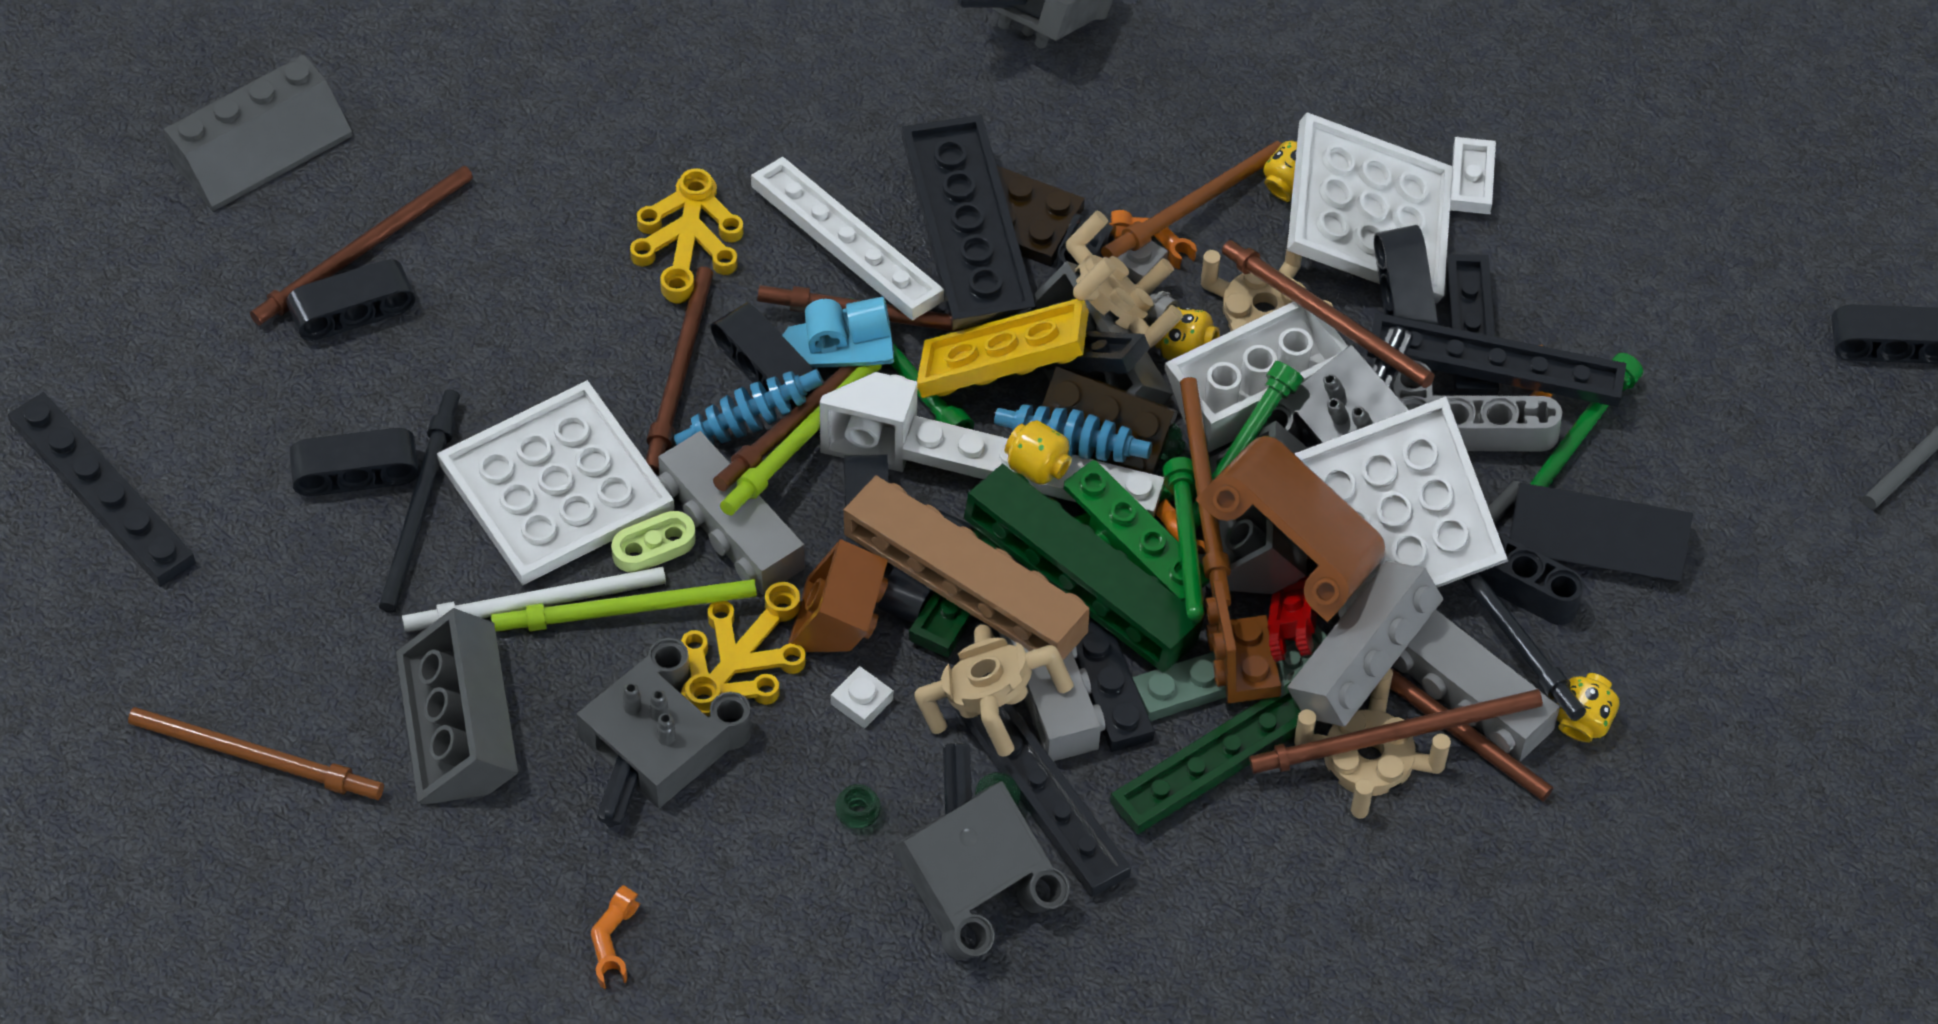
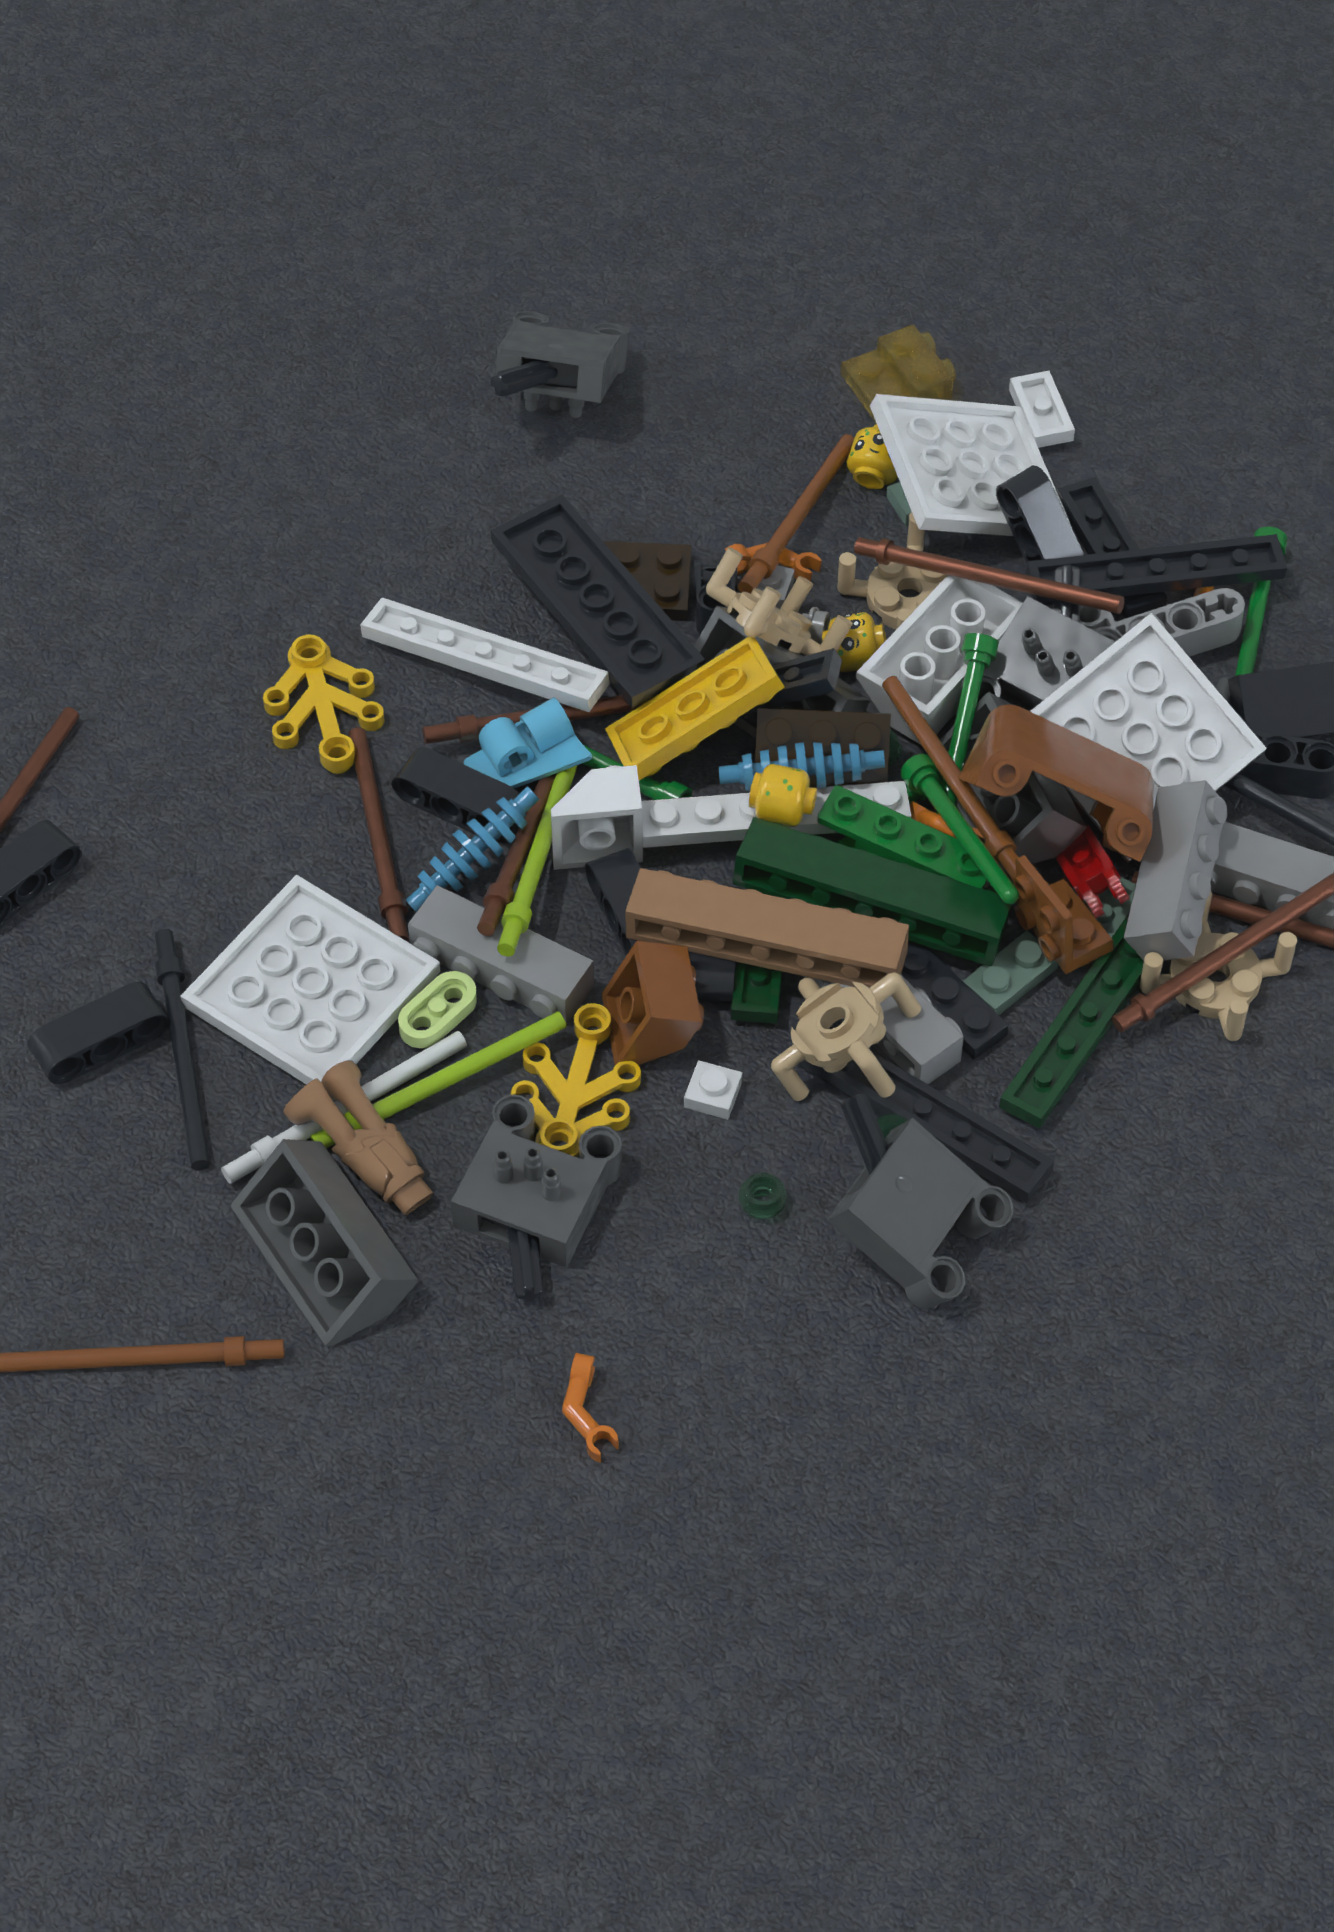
camera: 20 degrees left, 0 degrees up
(536, 649) = (376, 1150): none -> medium nougat piece
(1359, 97) = (900, 367): none -> clear yellow plate

